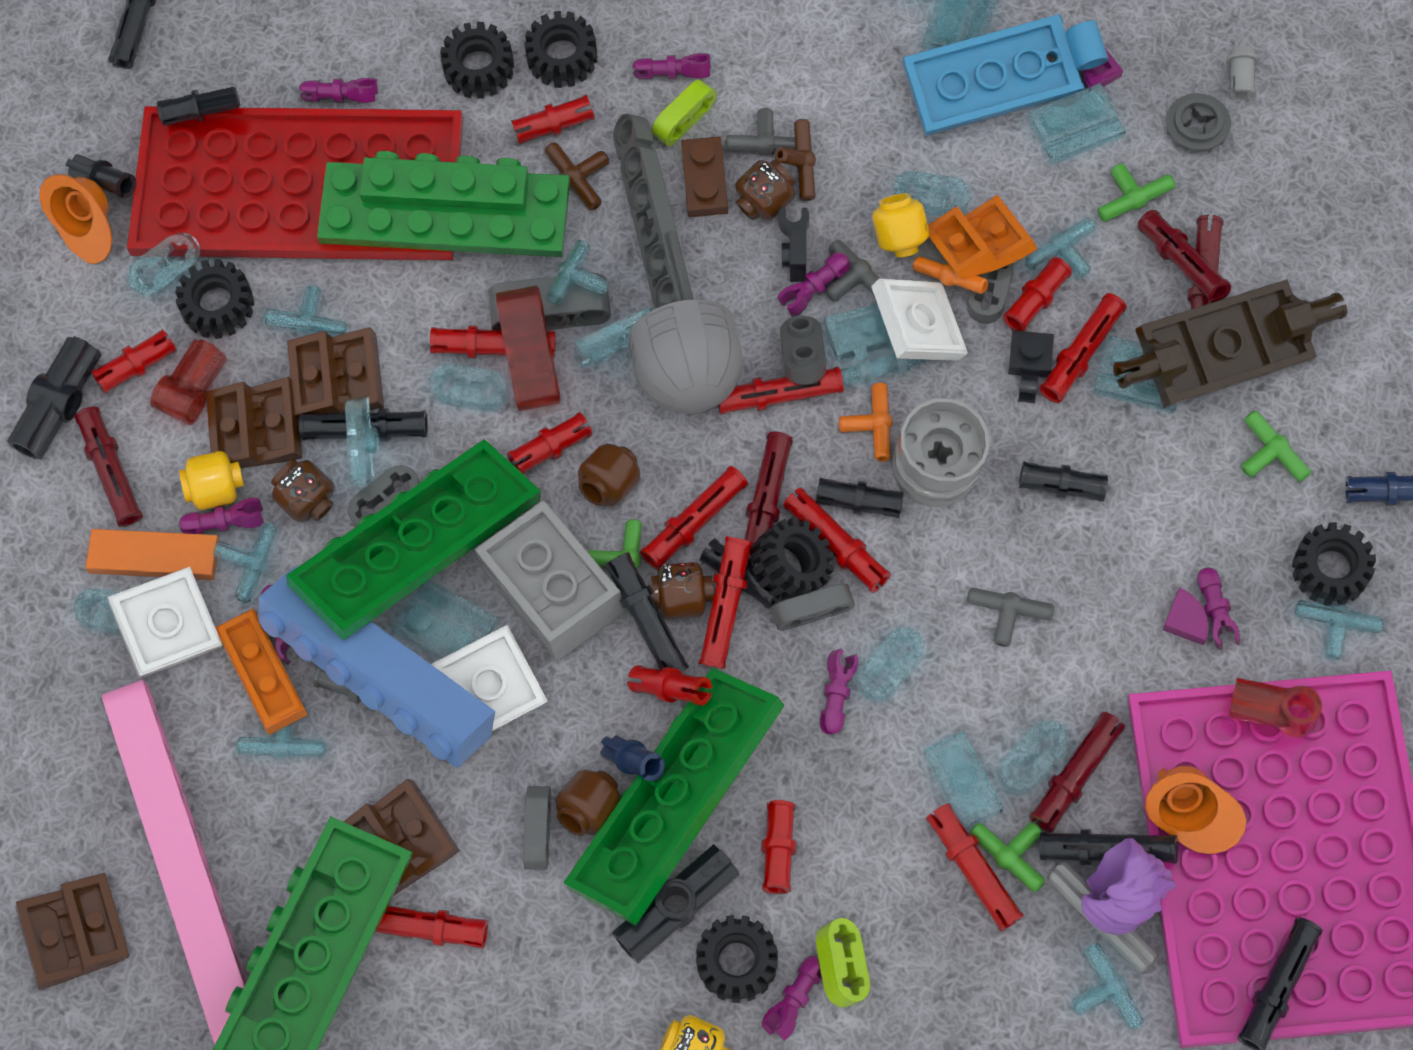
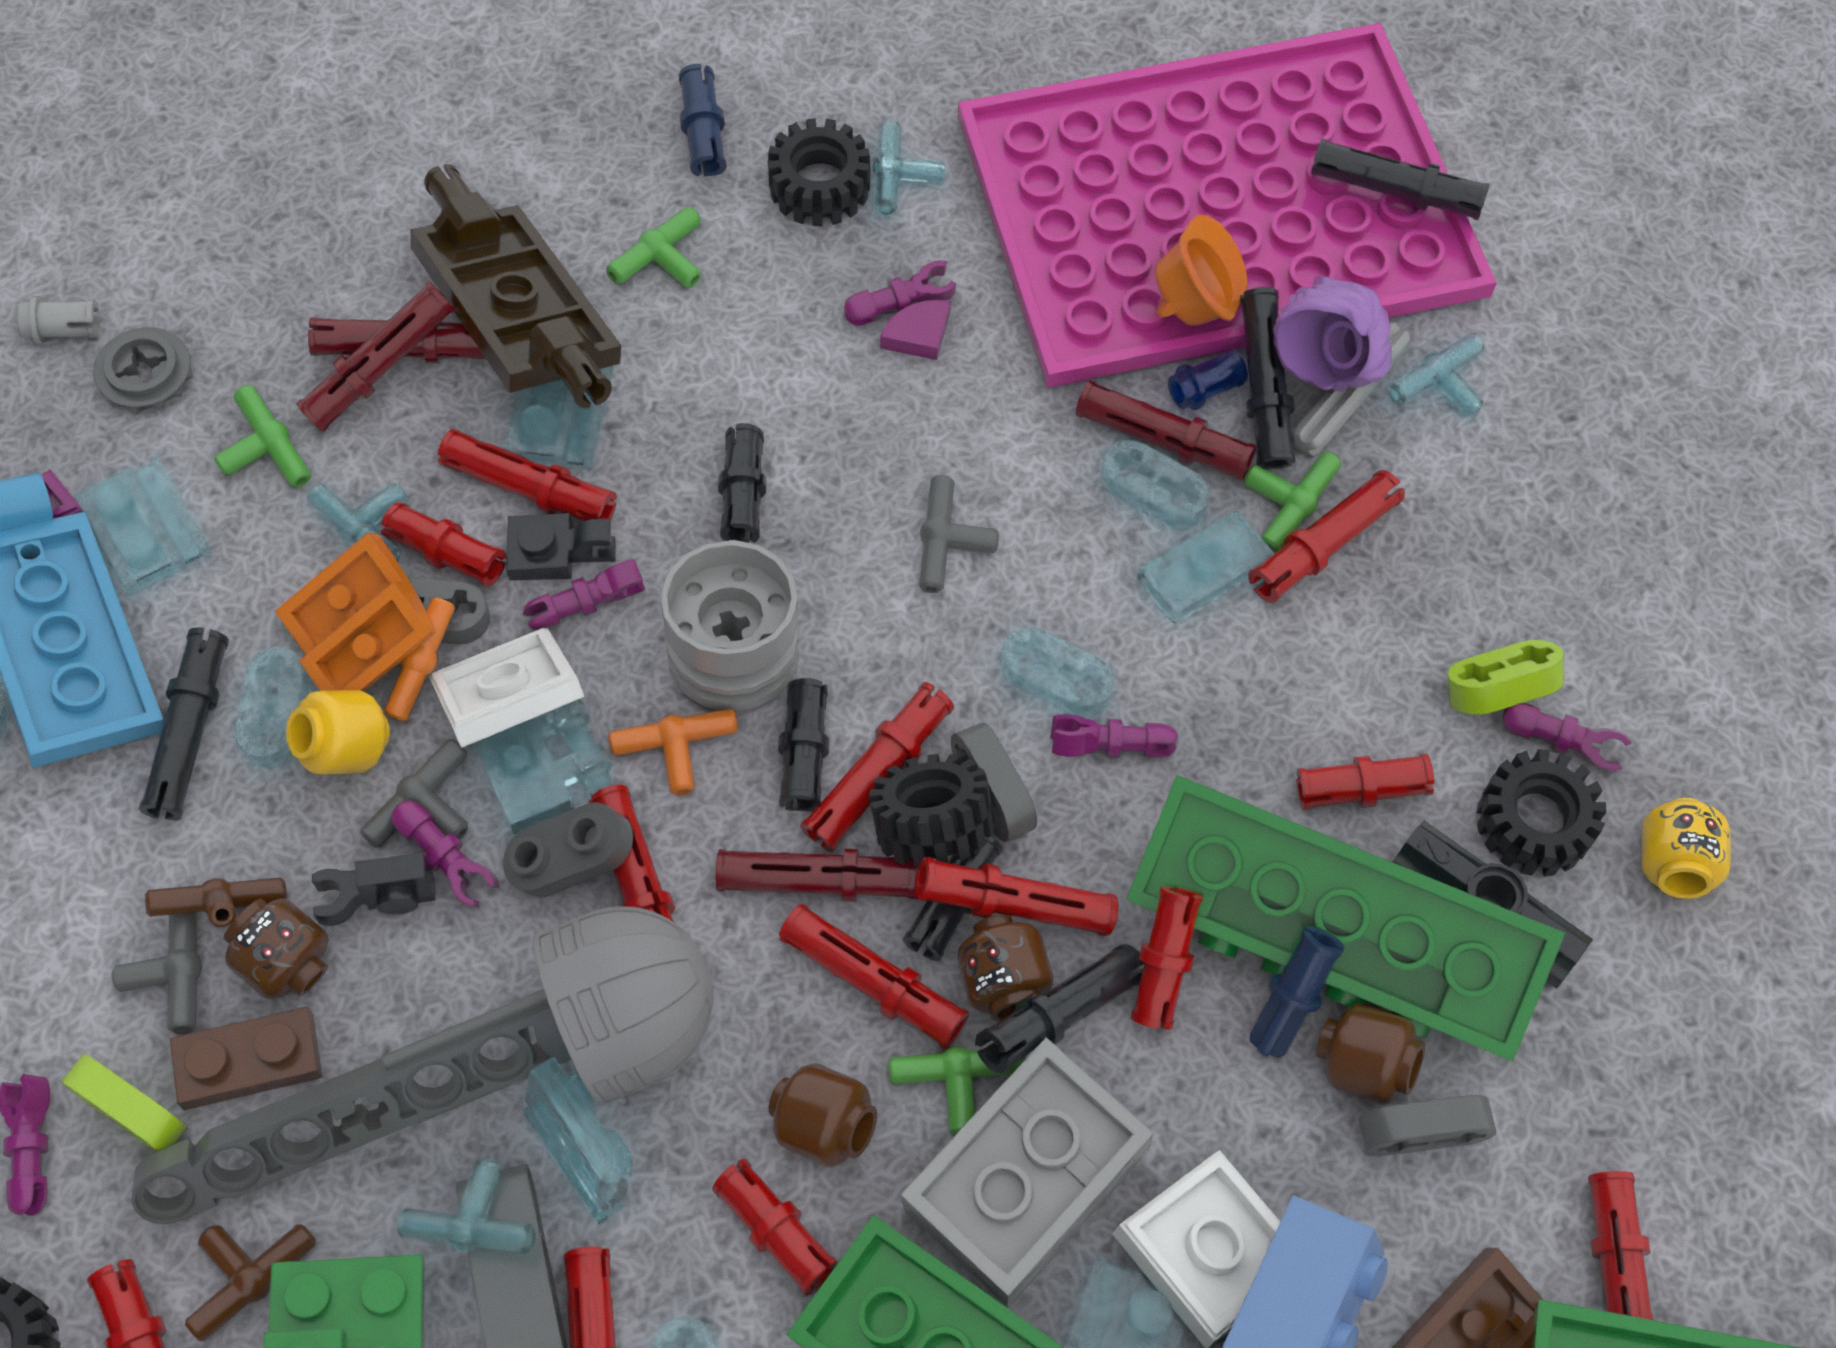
camera: 105 degrees left, 5 degrees down
(528, 348) = (612, 1279): clear red beam -> none
(926, 145) = (190, 700): none -> black pin
(989, 378) = (609, 586): none -> magenta piece
(1118, 808) = (1195, 384): none -> clear blue pin
(1270, 704) = (1043, 199): clear red piece -> none

